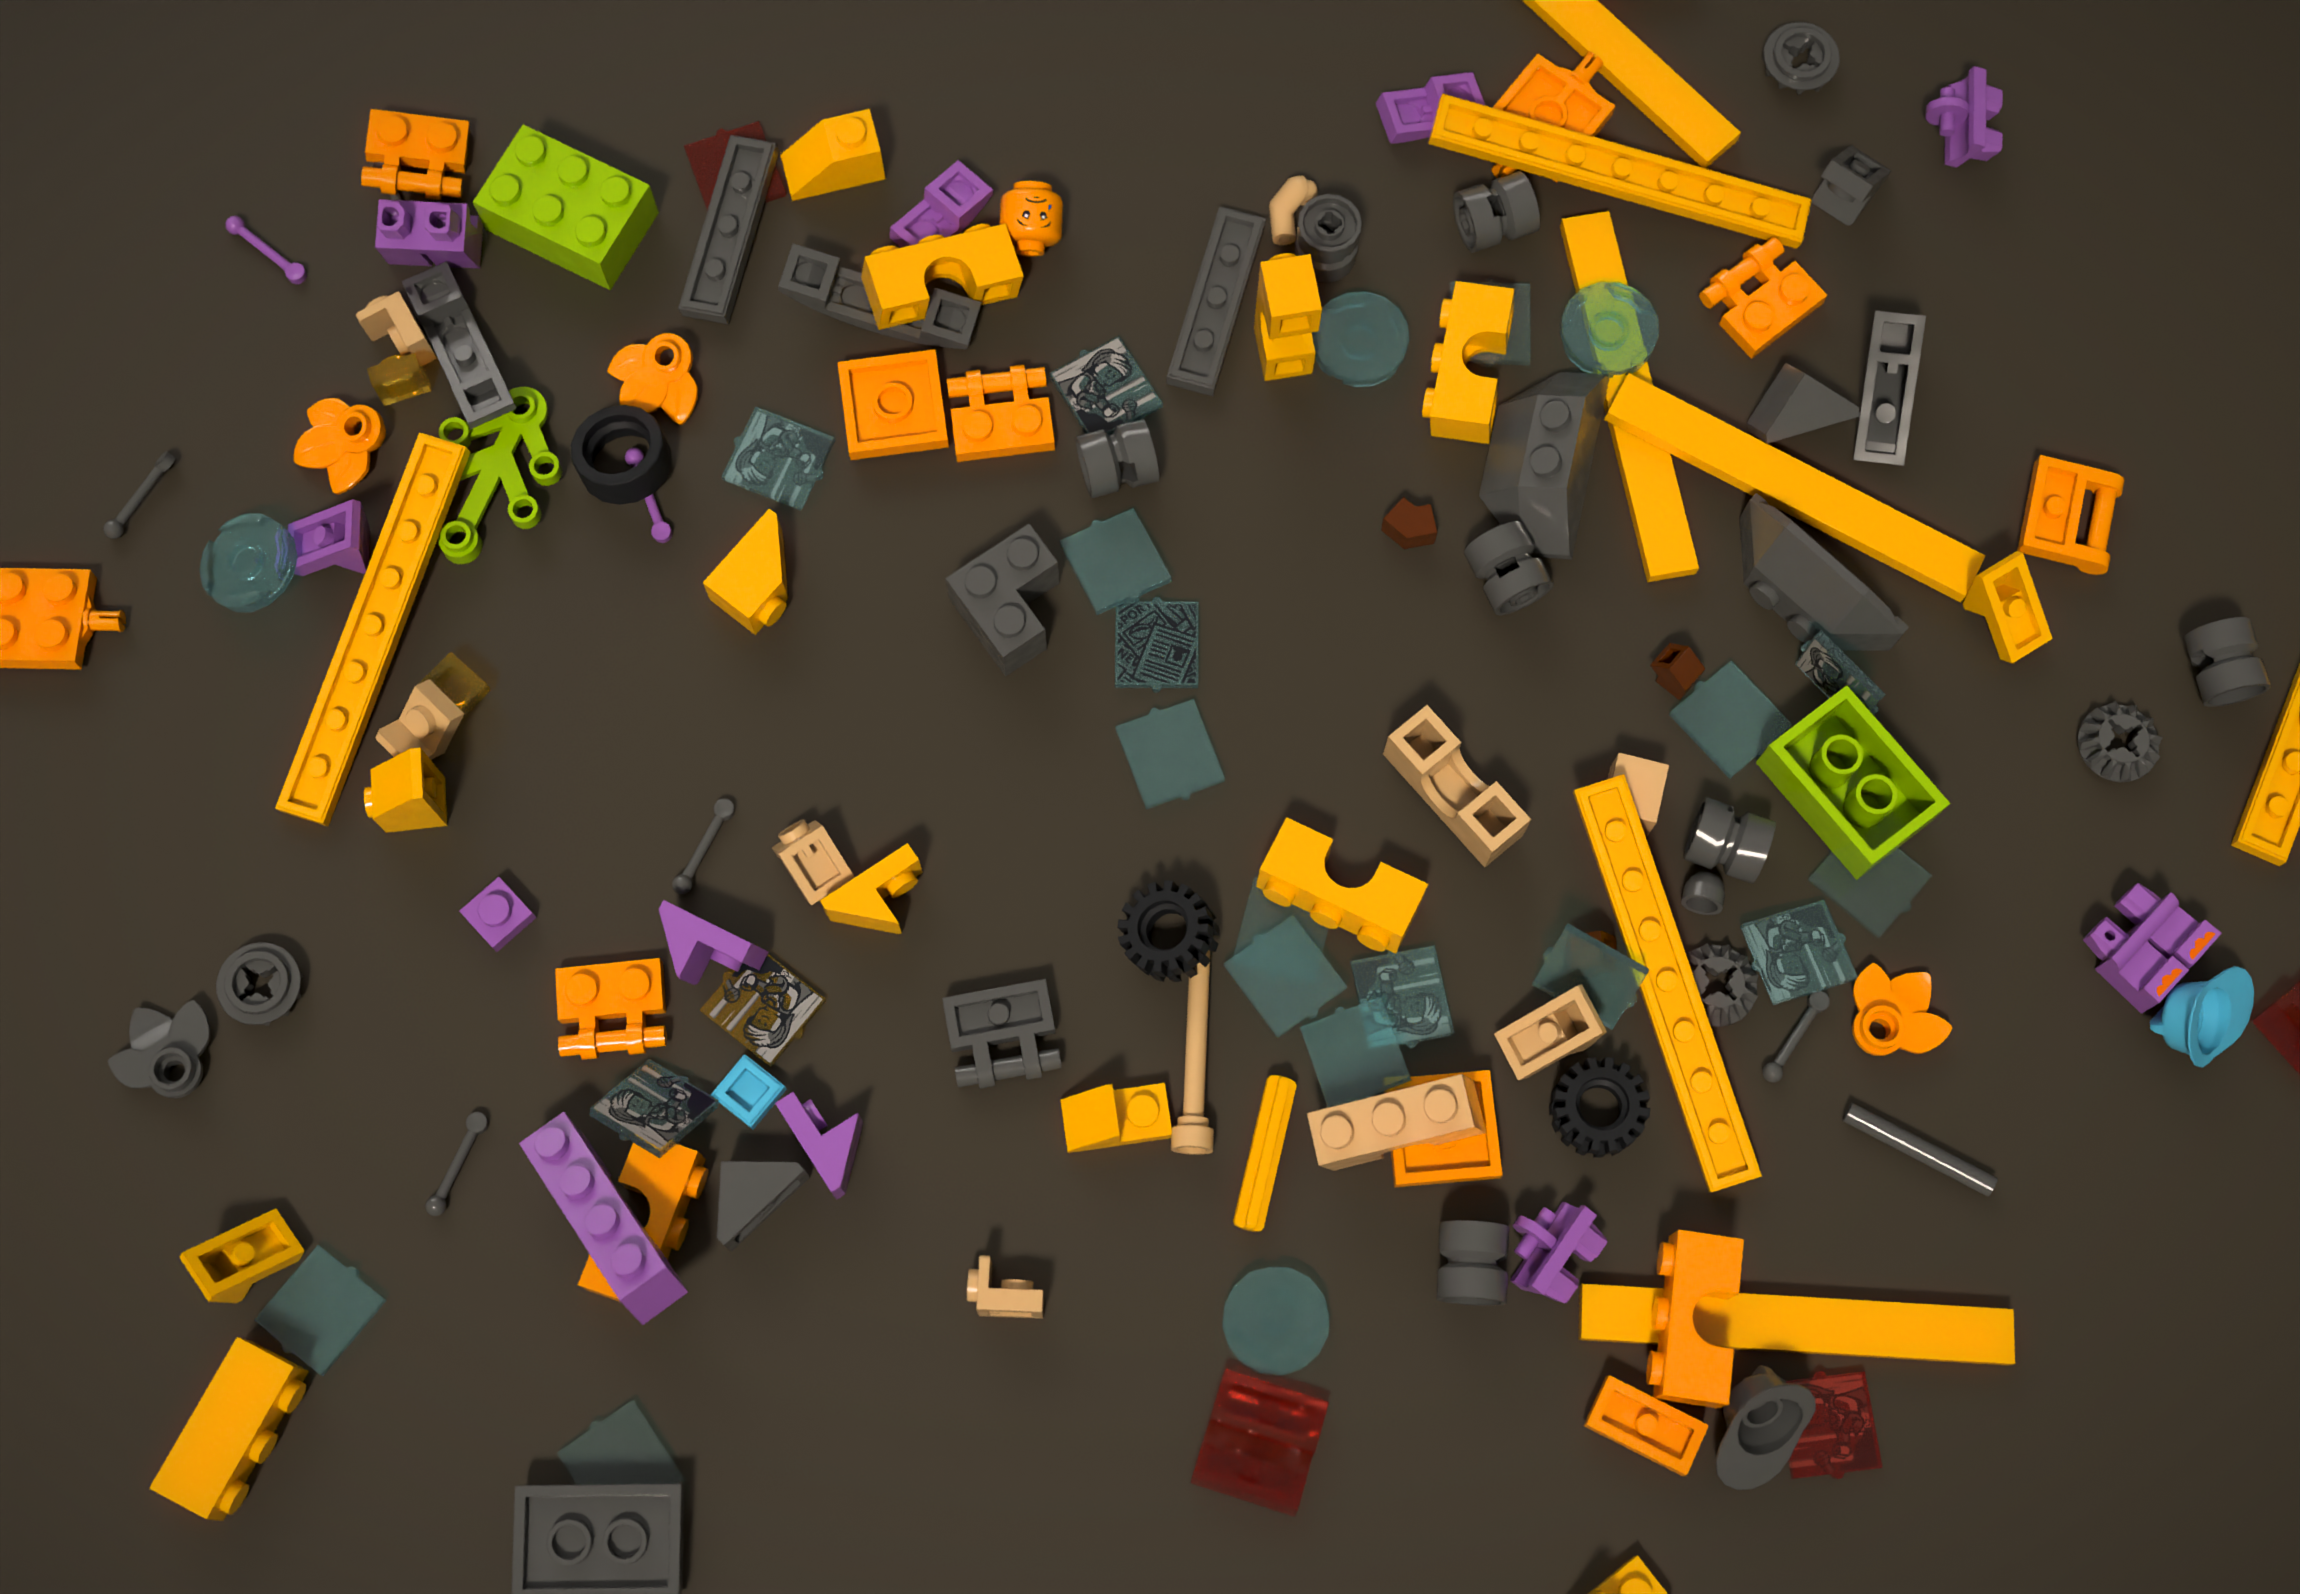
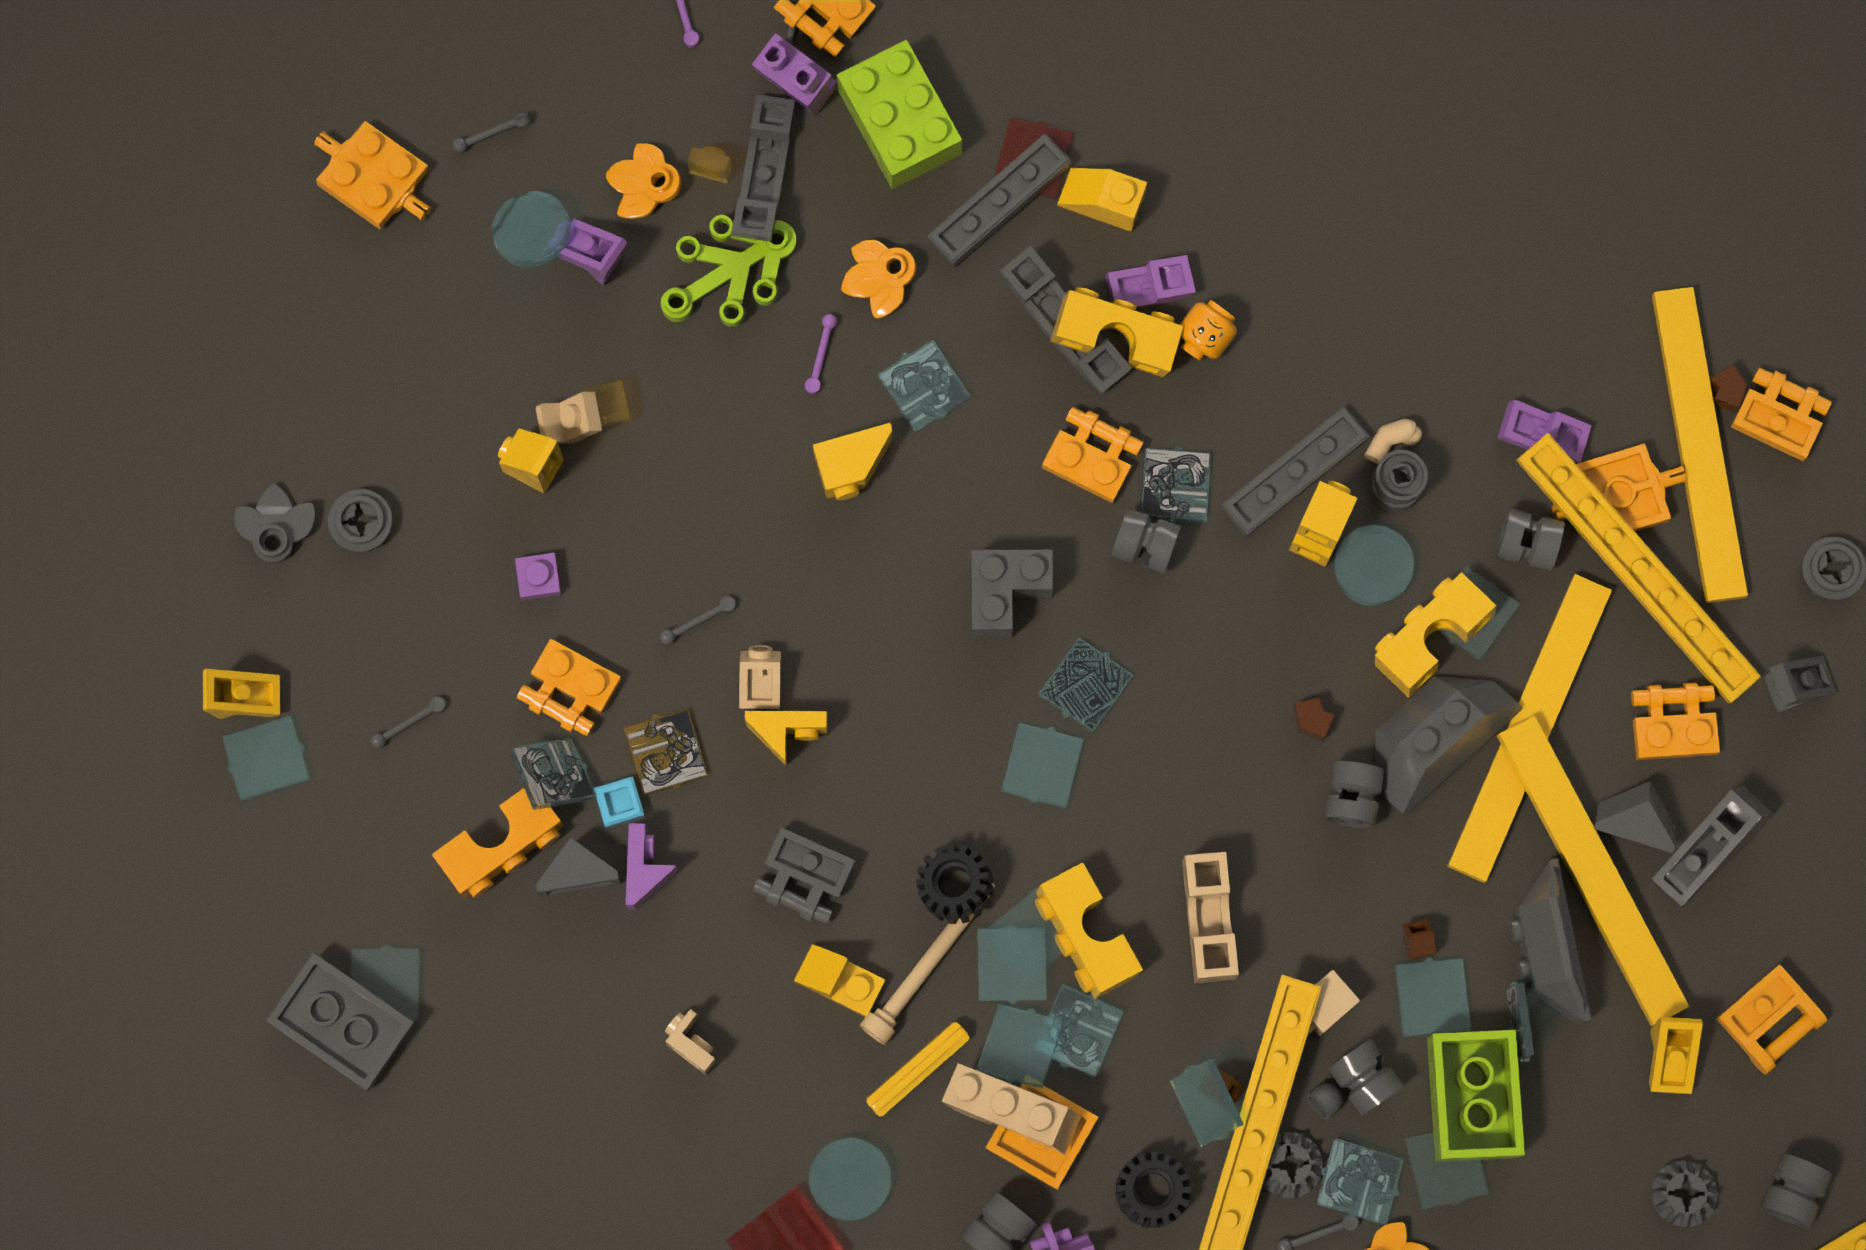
camera: 35 degrees right, 5 degrees up
(230, 1430) = (166, 797): yellow brick -> none
(373, 630) = (583, 329): yellow tile -> none
(394, 317) = (736, 133): tan bracket -> none
(603, 1219) = (472, 823): medium lavender arch -> none
(607, 426) = (813, 289): black tyre -> none
(696, 941) = (651, 681): medium lavender slope -> none
(893, 404) = (1024, 400): light orange plate -> none
(1115, 561) = (1097, 609): clear light blue piece -> none
(1551, 1033) = (1153, 1120): tan slope -> none
(1609, 329) = (1546, 675): clear light blue tile -> none

